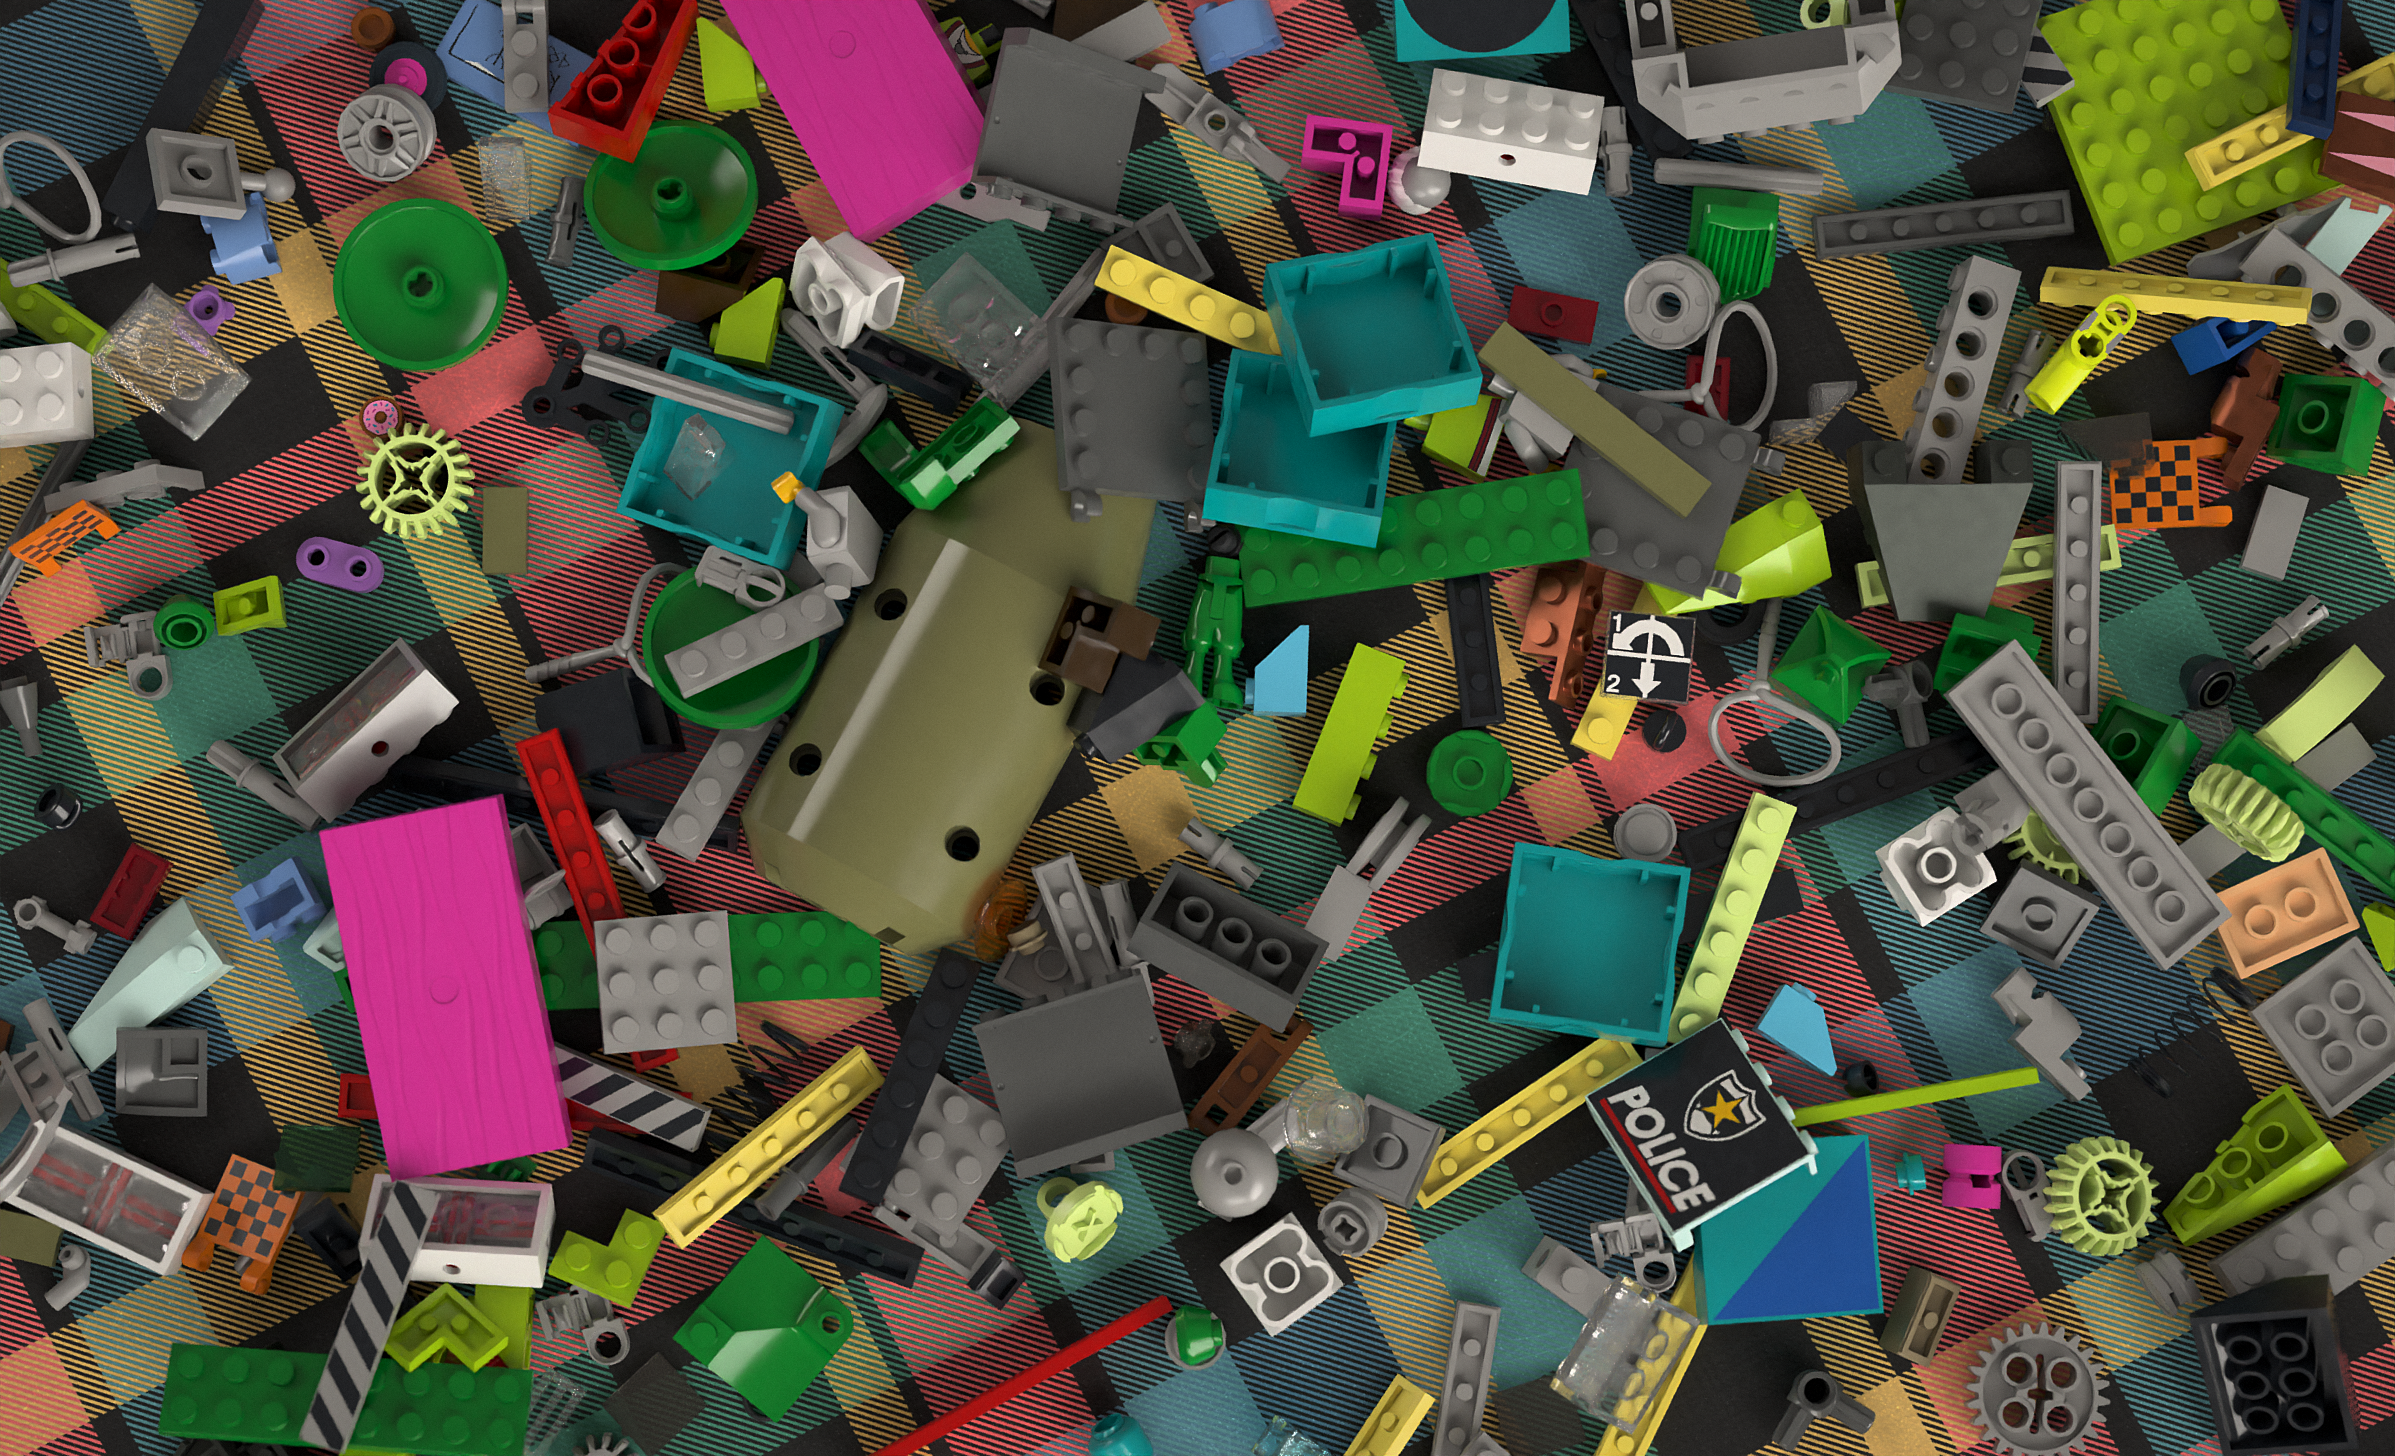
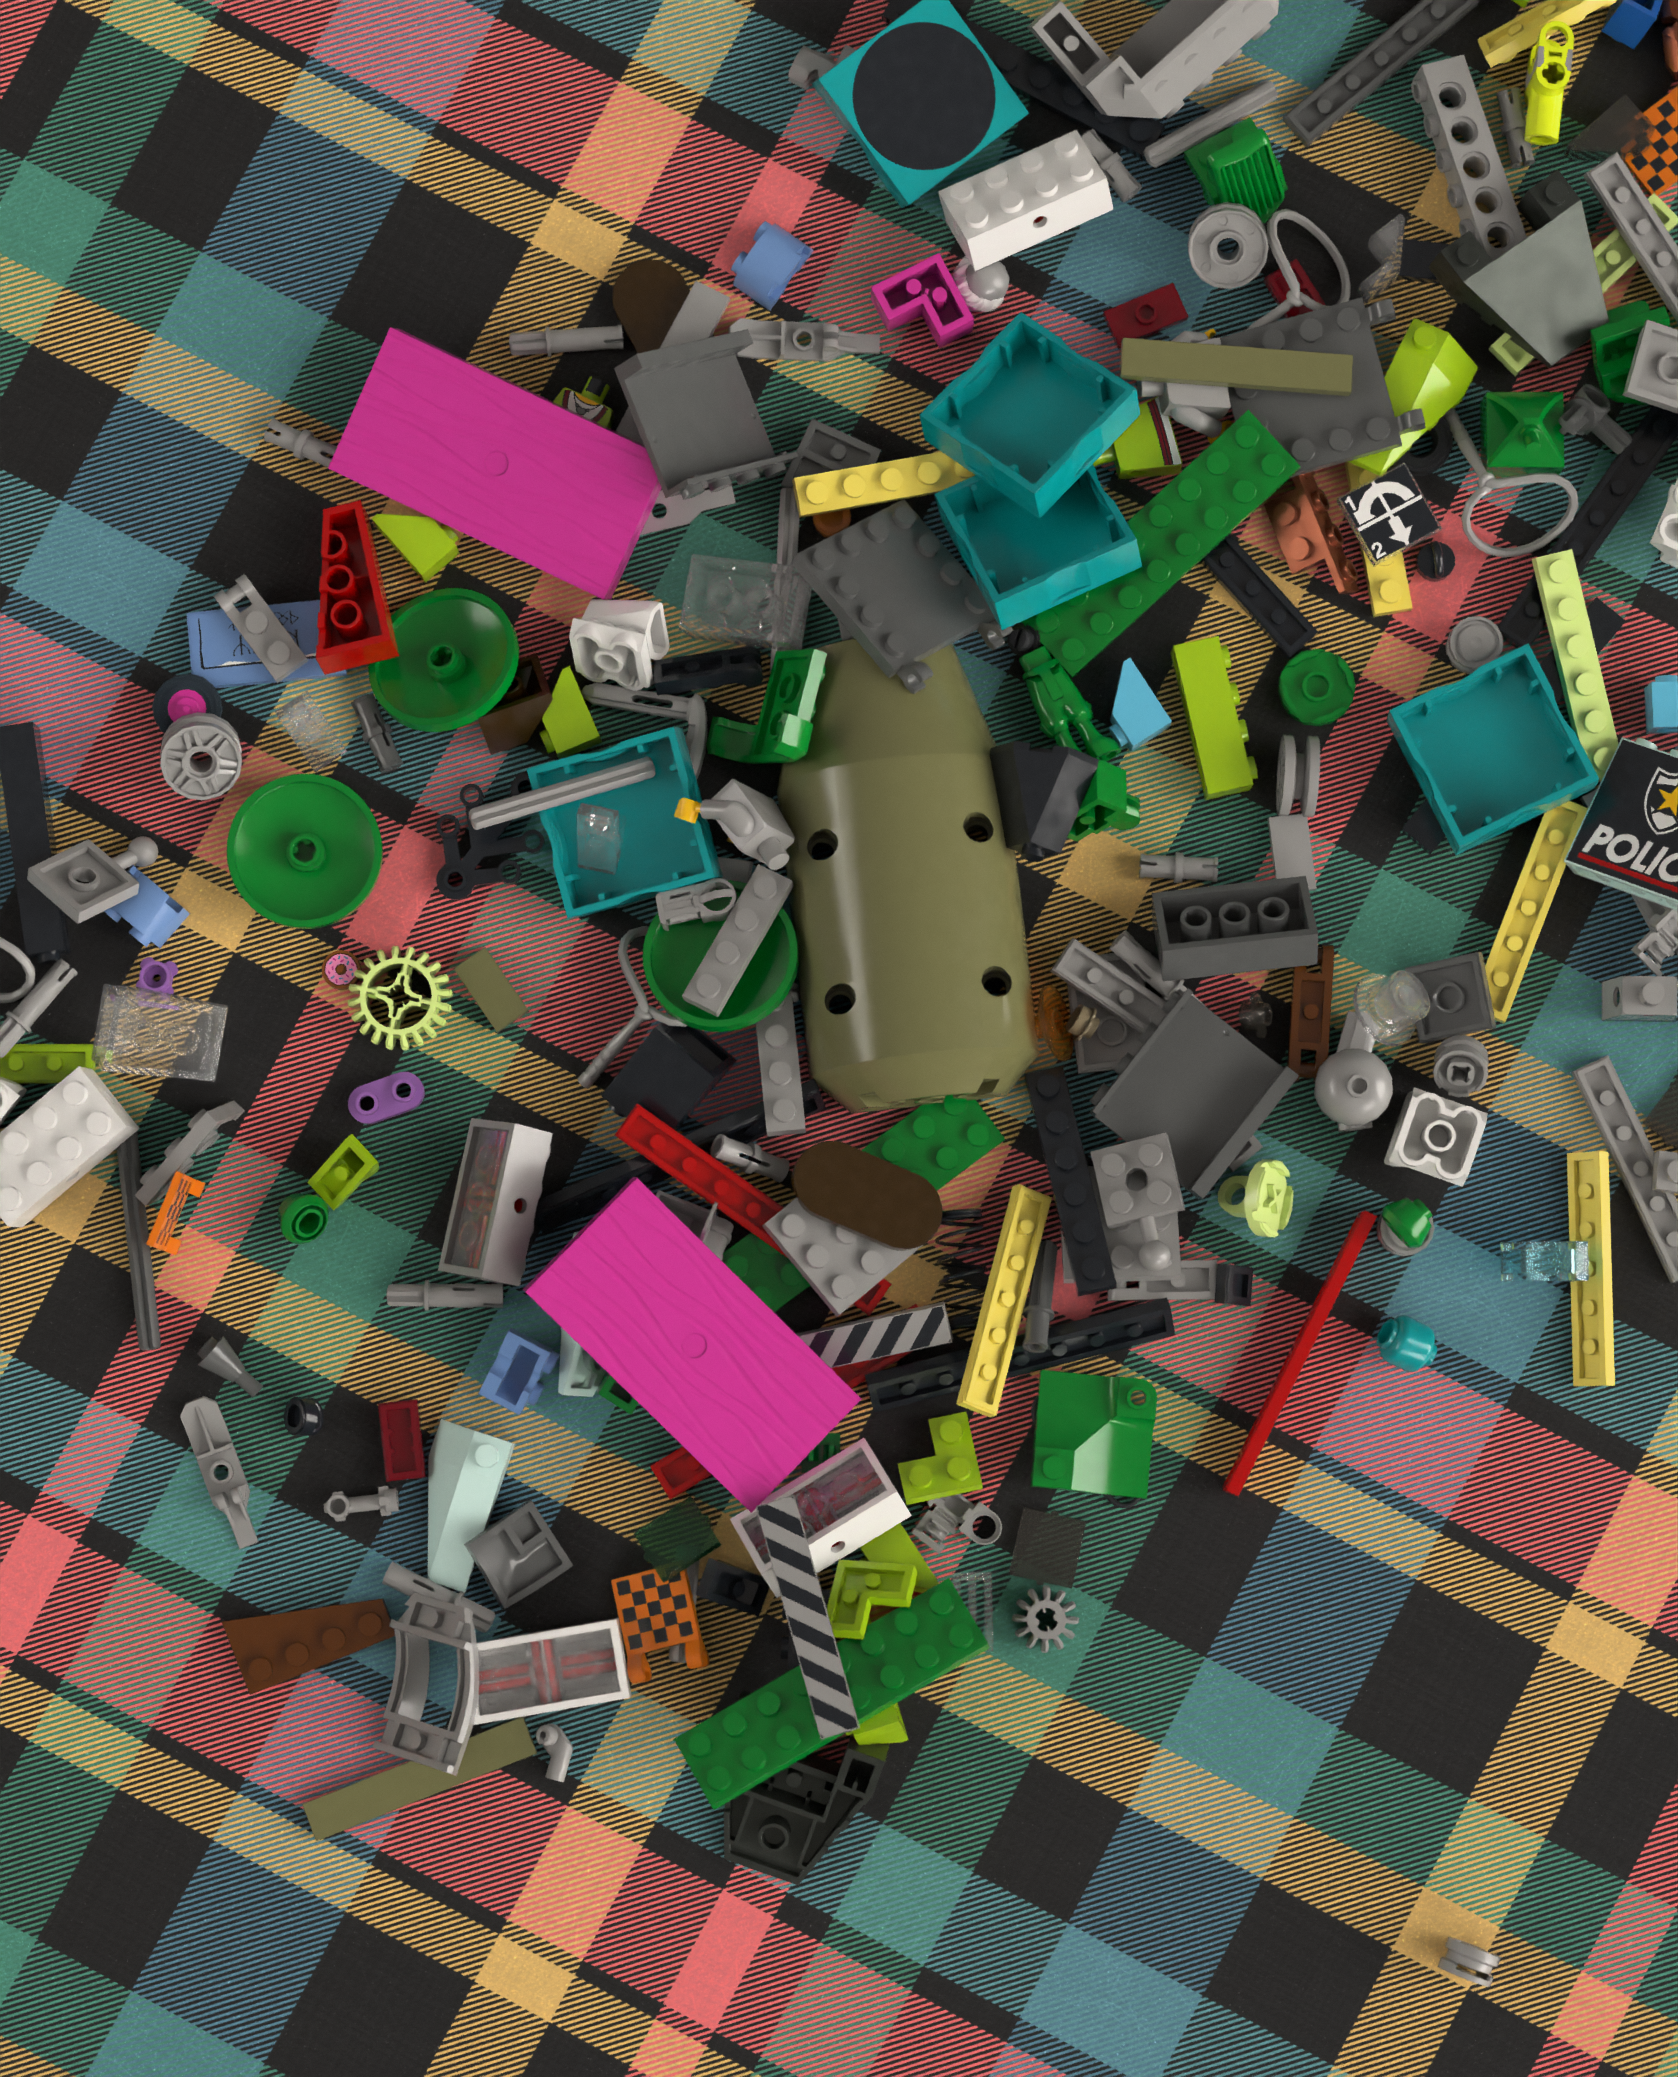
camera: 35 degrees left, 0 degrees up
(133, 642) = (275, 1256): light grey piece -> none
(373, 29) = (132, 689): dark orange tile -> none
(707, 960) = (866, 1195): none -> dark brown tile
(976, 1150) = (1157, 1198): none -> light grey plate
(1092, 634) = (986, 762): dark brown brick -> none

